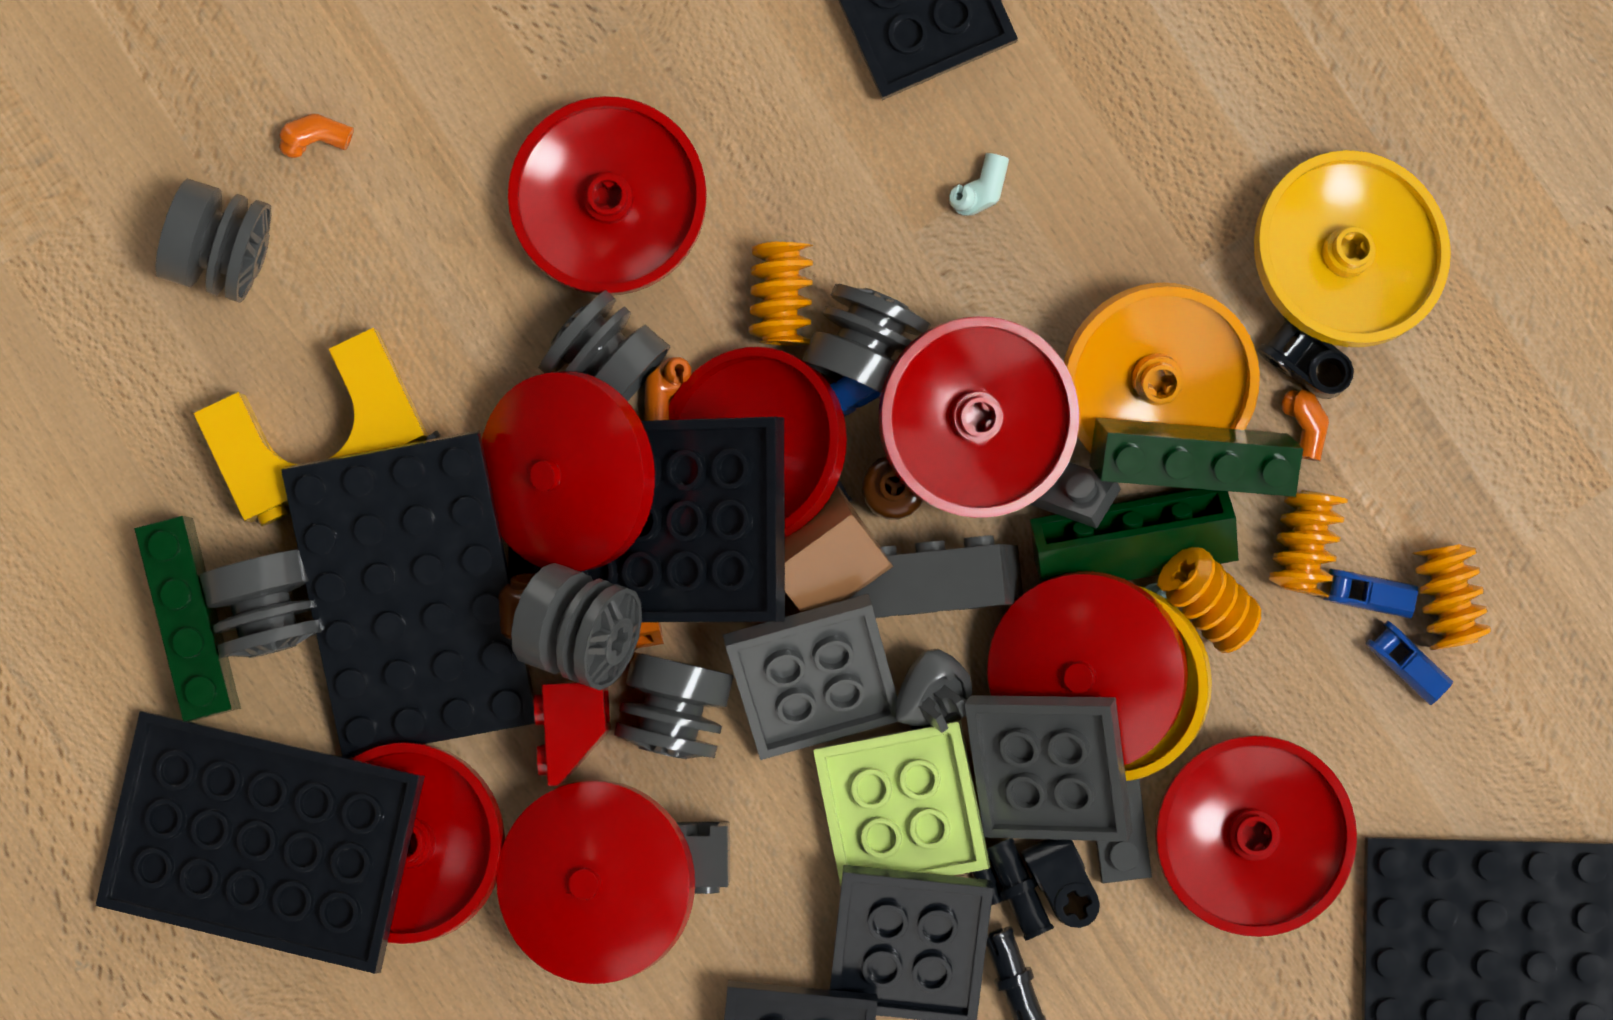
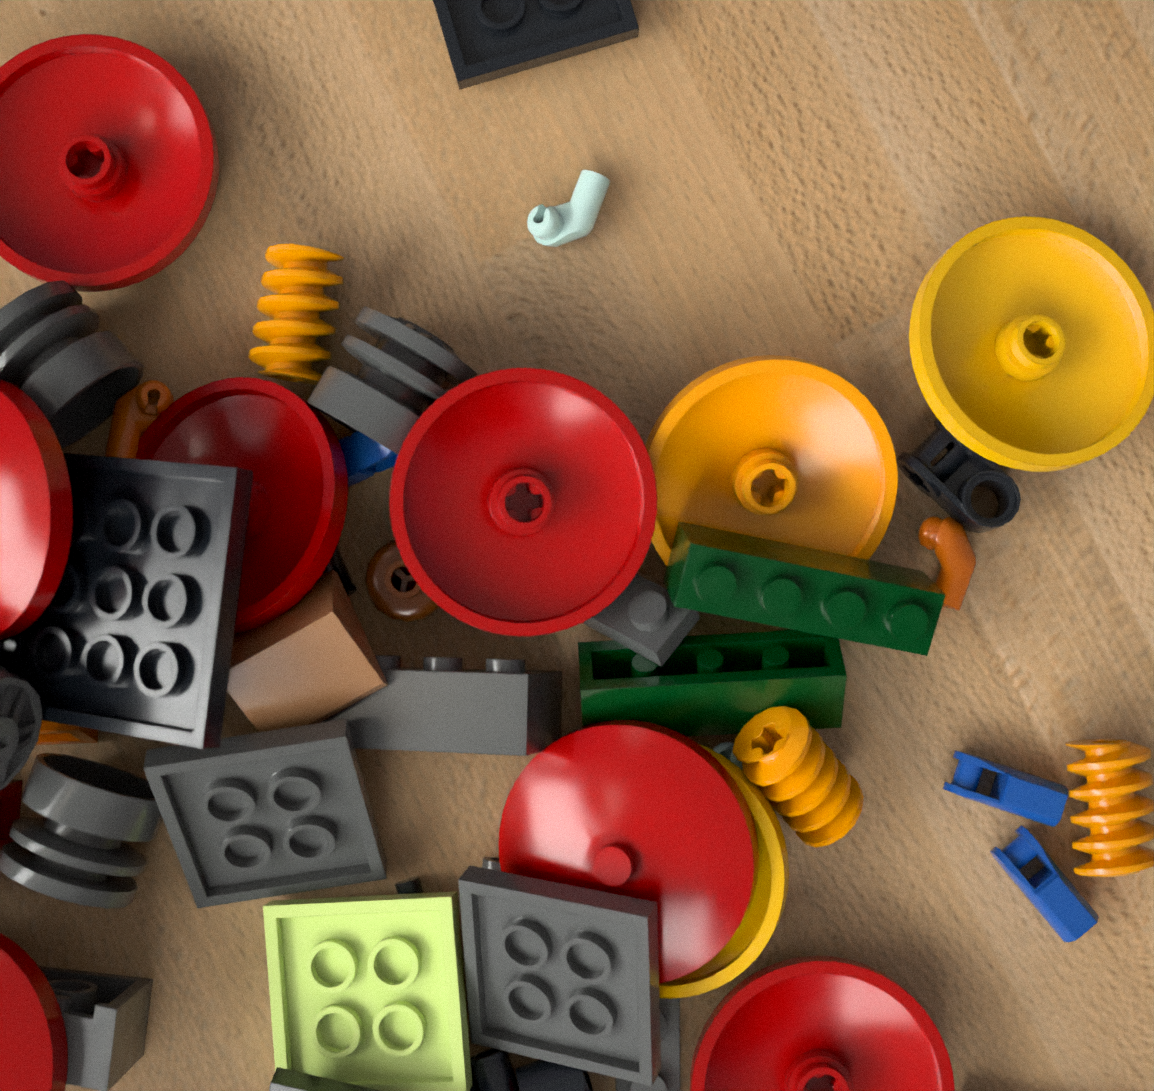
camera: 10 degrees right, 0 degrees up
(933, 691) = (425, 851): dark grey piece -> none
(1307, 542) = (933, 715): light orange piece -> none

